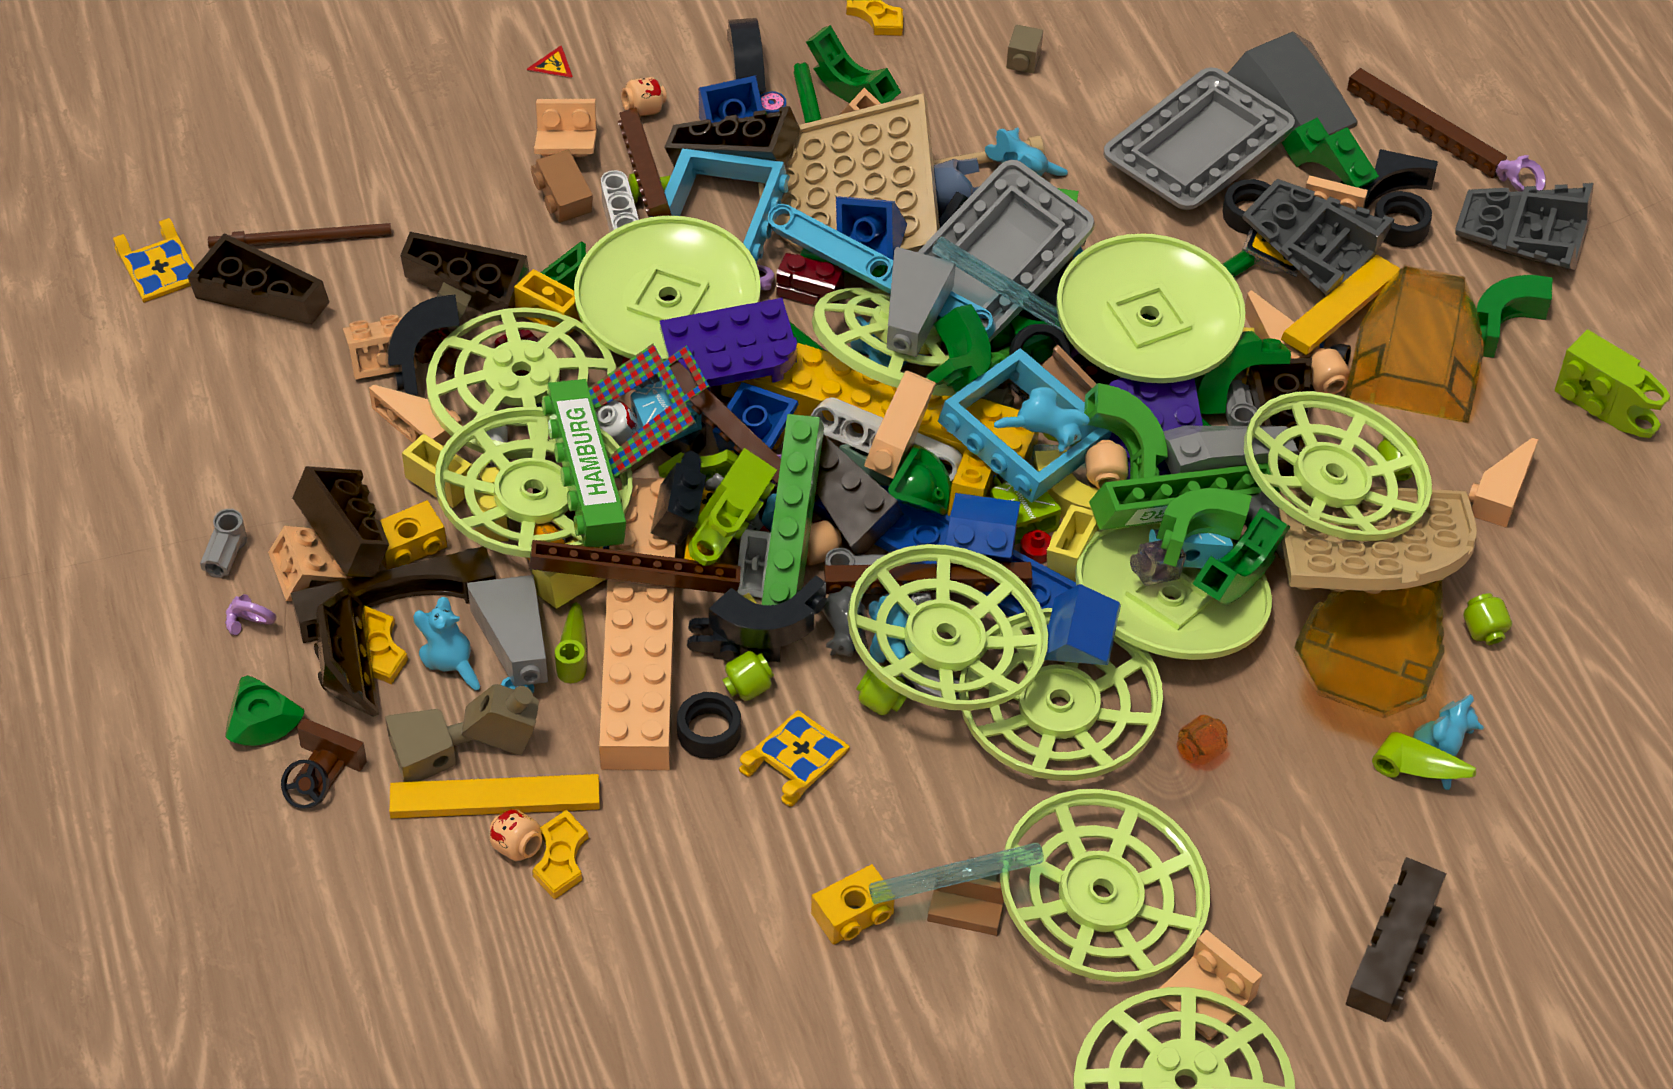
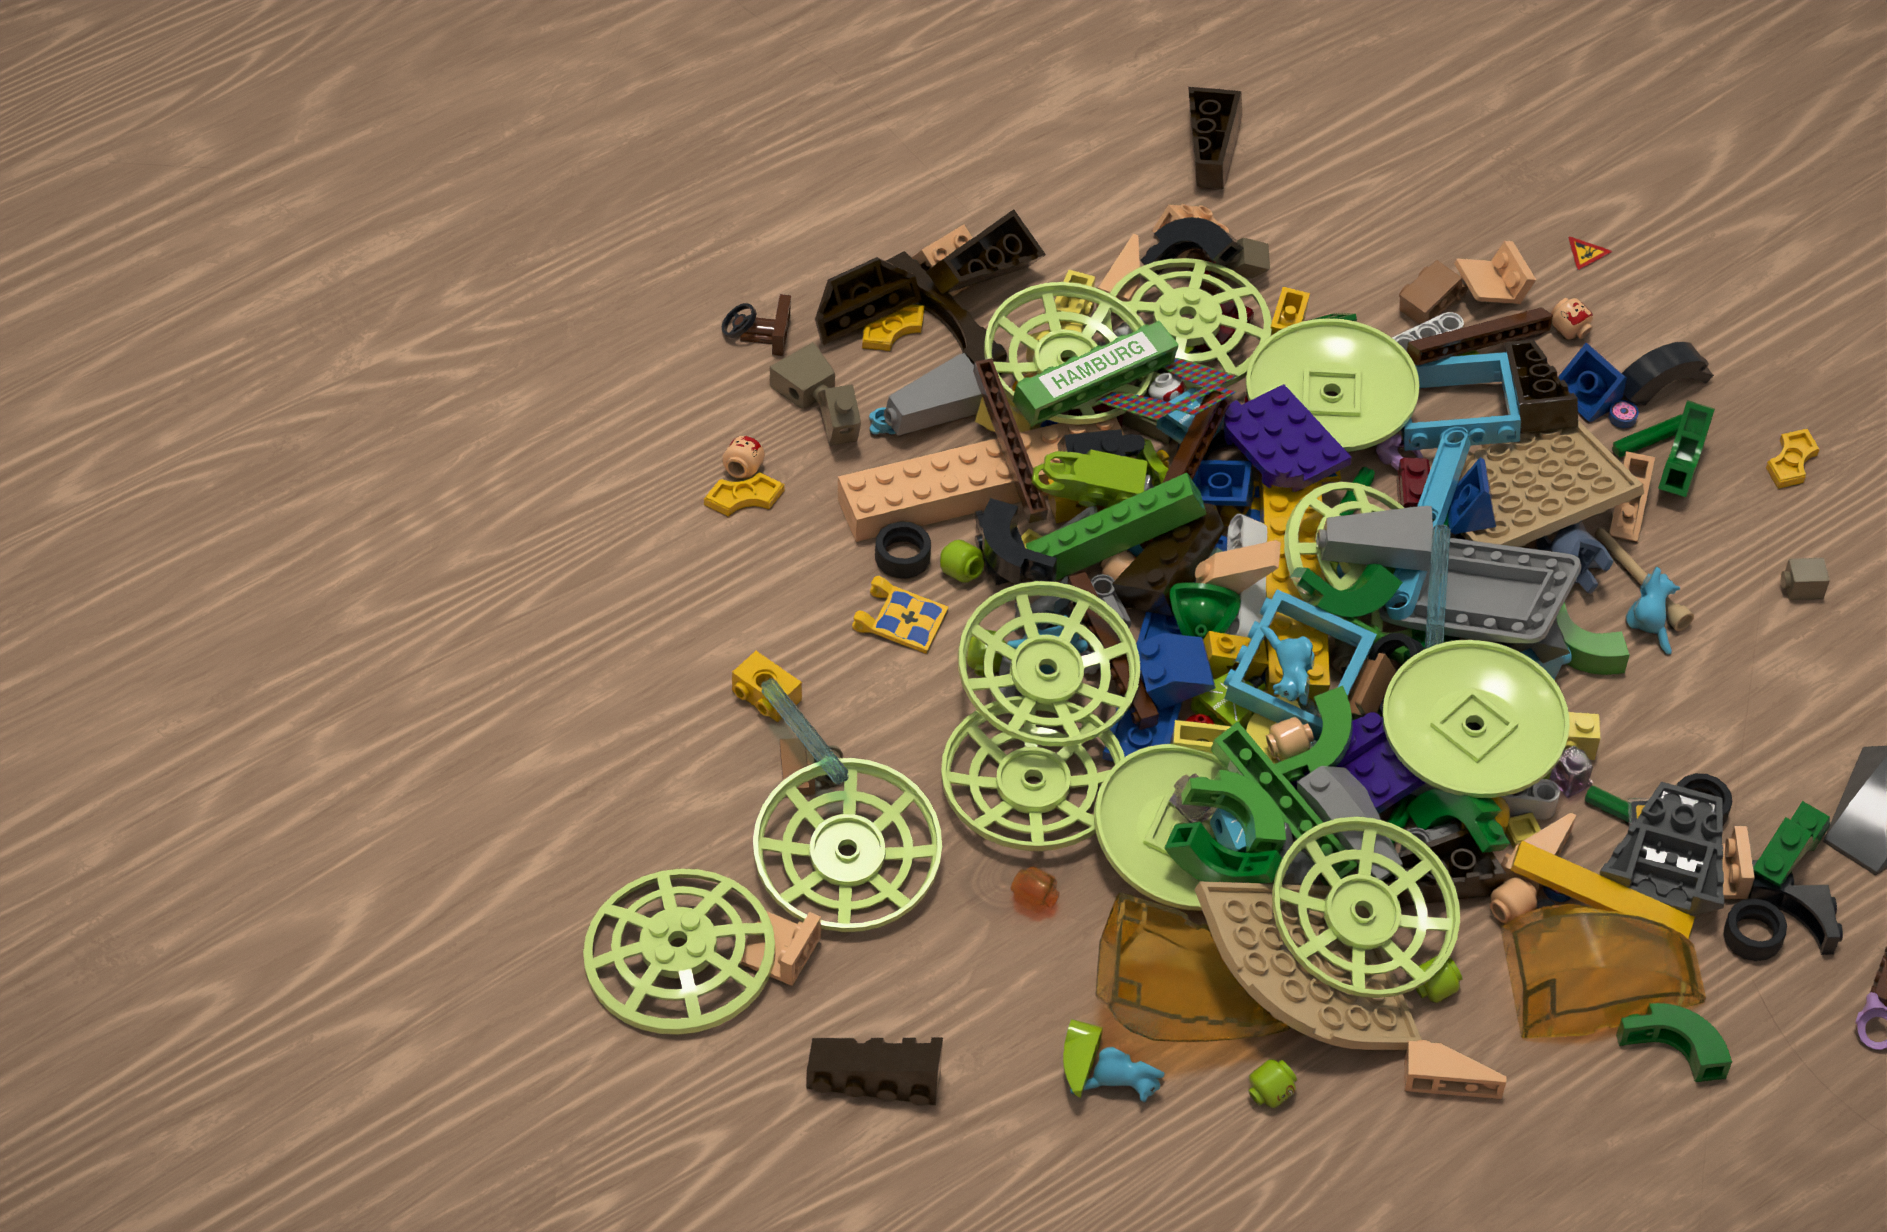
camera: 70 degrees right, 0 degrees up
(157, 267) = (1208, 71): yellow flag -> none
(224, 543) = (951, 202): light grey piece -> none
(244, 608) = (884, 236): lavender piece -> none
(260, 714) = (794, 274): green hat -> none
(308, 234) = (1262, 115): reddish brown bar -> none
(412, 535) = (990, 296): yellow brick -> none
(446, 646) = (903, 362): medium azure animal -> none
(474, 269) = (1293, 257): dark brown wedge -> none
(494, 796) = (781, 439): yellow tile -> none
(572, 649) = (929, 441): lime piece -> none
(1082, 626) = (1091, 759): blue slope -> none
(1199, 138) = (1759, 736): light grey wedge -> none
(1529, 222) = (1808, 1042): dark grey wedge -> none
(1610, 385) = (1610, 1129): lime brick -> none

